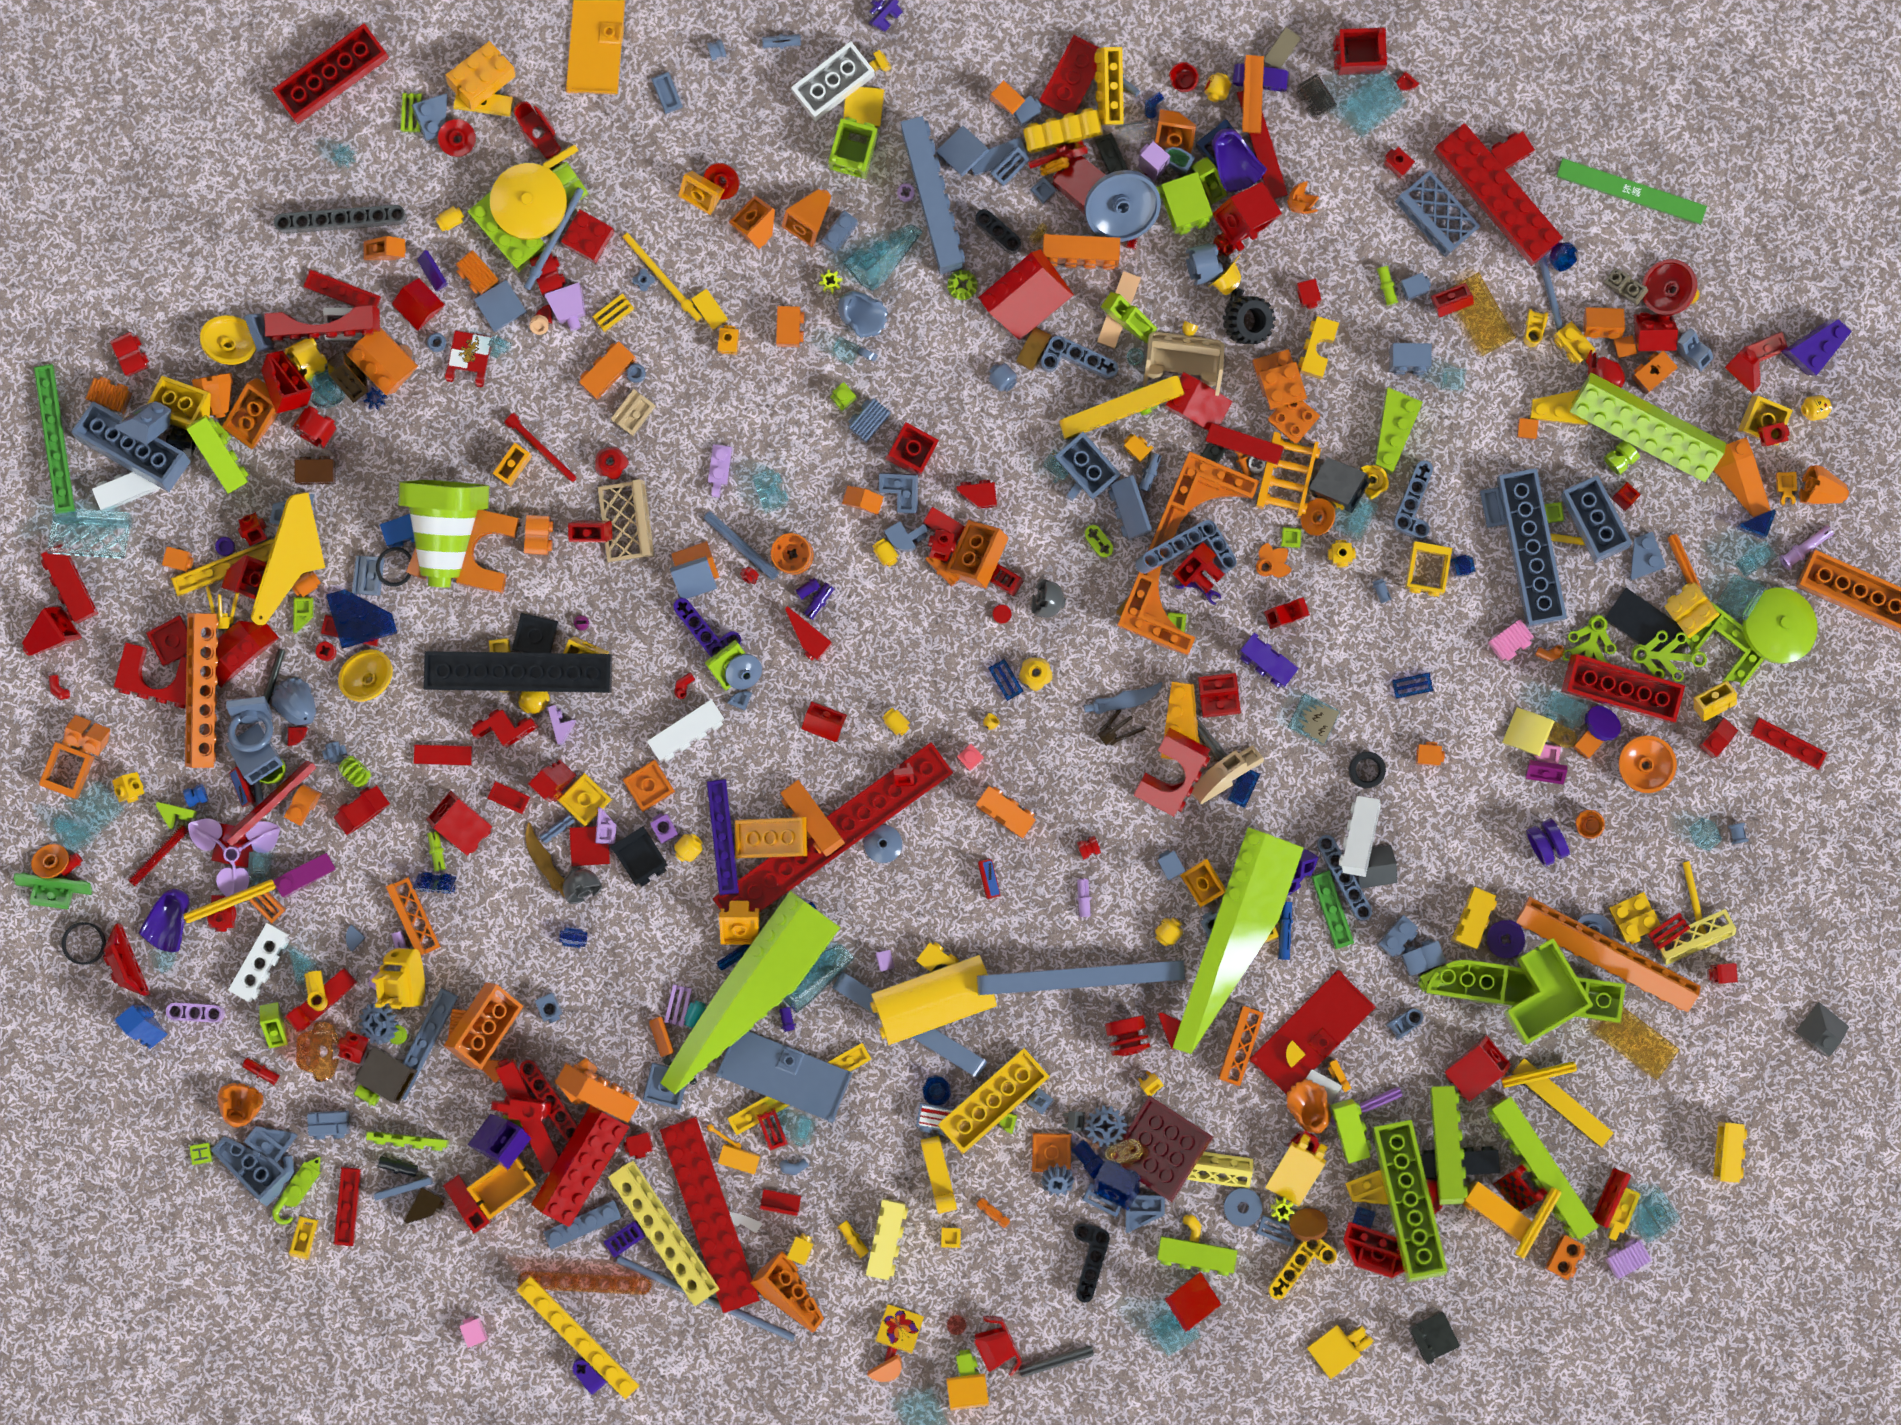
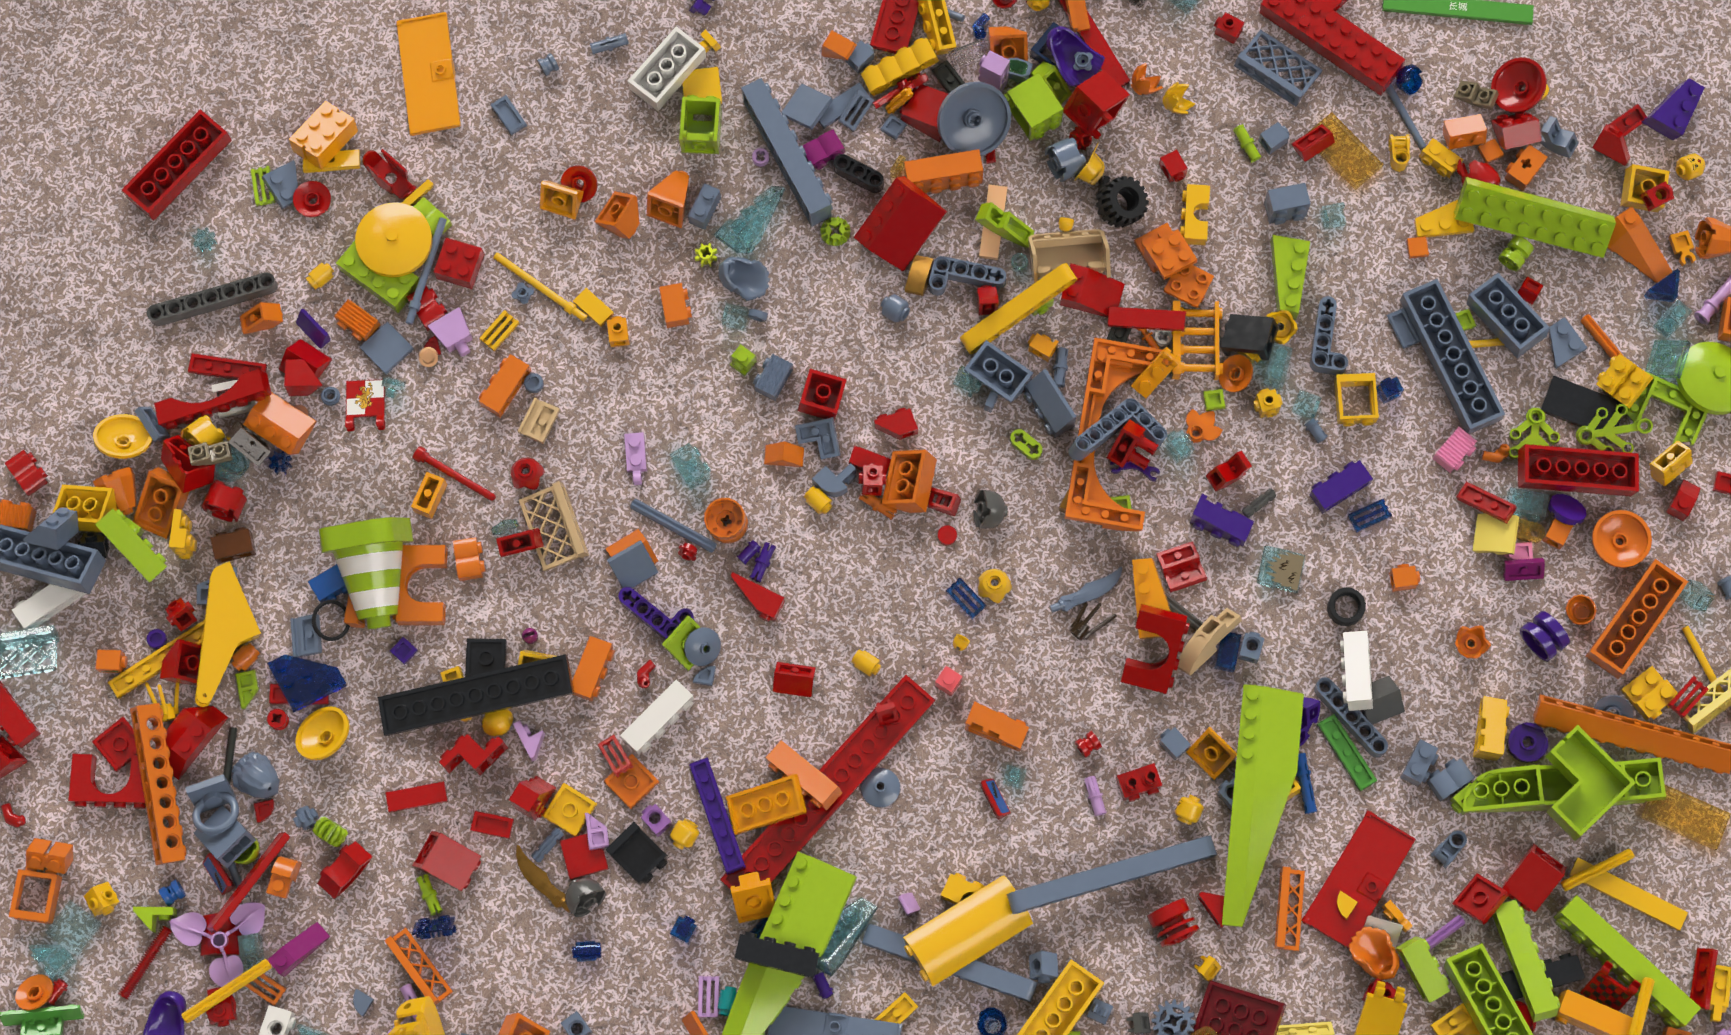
camera: 10 degrees left, 10 degrees down
(266, 457) = (181, 539): none -> yellow plate
(309, 380) = (207, 455): none -> dark tan slope
(410, 319) = (300, 378): none -> red slope
(458, 610) = (403, 650): none -> dark purple tile
(579, 510) = (504, 526): none -> clear light blue tile
(634, 669) = (592, 668): none -> orange brick
(643, 772) = (623, 768): none -> red tile
(668, 938) = (684, 929): none -> clear blue brick
(748, 986) = (776, 955): none -> black brick
(968, 199) = (823, 149): none -> magenta brick
(996, 1049) = (1043, 966): none -> sand blue brick
(1012, 862) = (1014, 777): none -> clear light blue tile
(1094, 389) = (987, 300): none -> red slope
(1128, 894) = (1139, 782): none -> red brick
(1239, 168) = (1078, 61): none -> sand blue plate
(1240, 500) = (1155, 372): none -> light orange plate
(1246, 575) = (1179, 445): none -> clear light blue brick
(1260, 795) = (1248, 655): none -> sand blue brick
(1309, 649) = (1259, 502): none -> dark grey axle
(1326, 225) = (1174, 100): none -> yellow piece
(1379, 563) = (1306, 404): none -> clear light blue panel
(1391, 651) = (1340, 486): none -> dark purple brick
(1421, 1077) = (1480, 899): none -> red tile
(1484, 825) = (1477, 636): none -> orange piece
(1527, 699) = (1486, 502): none -> red tile
(1640, 844) = (1636, 619): none -> orange brick

